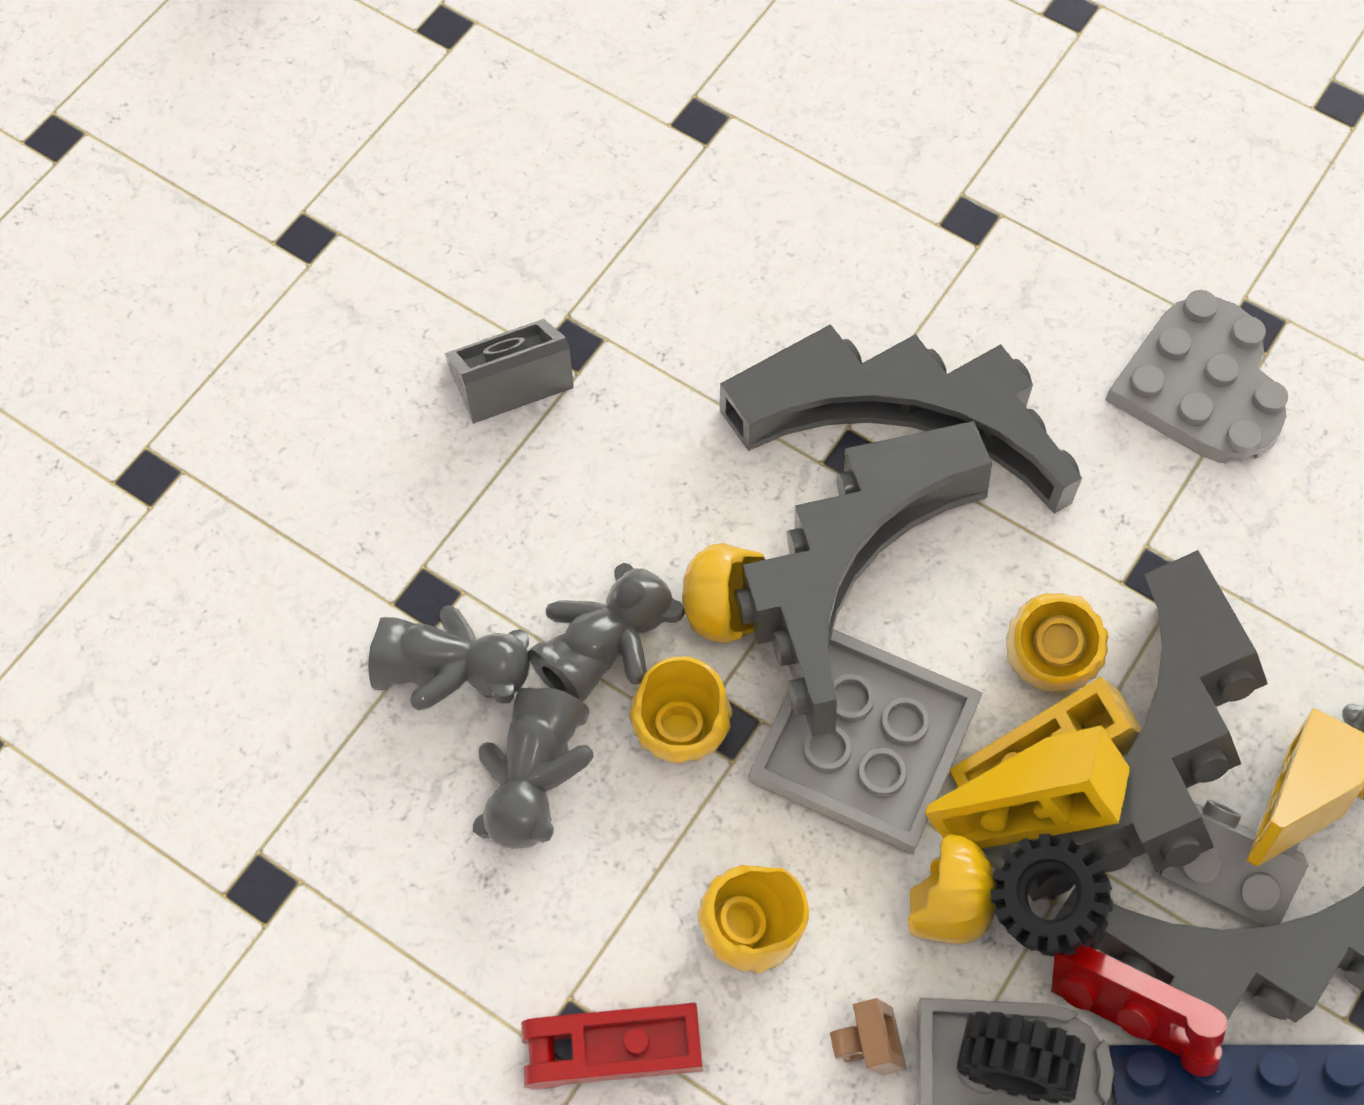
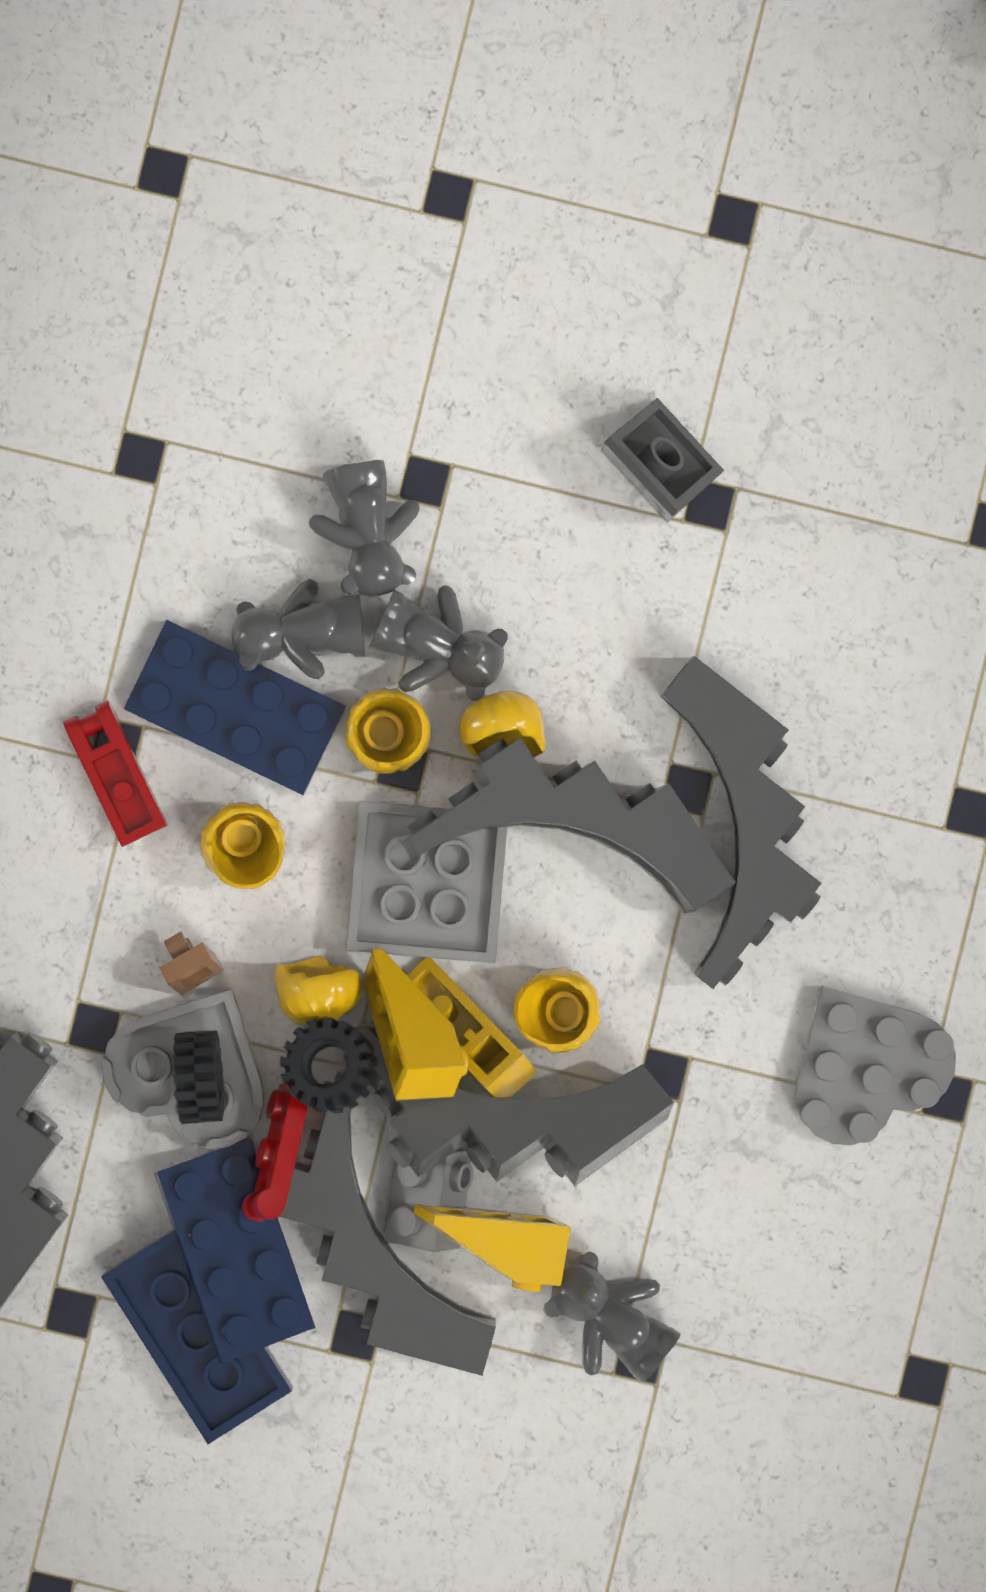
camera: 65 degrees right, 25 degrees up
(587, 882) = (236, 713): none -> dark blue plate

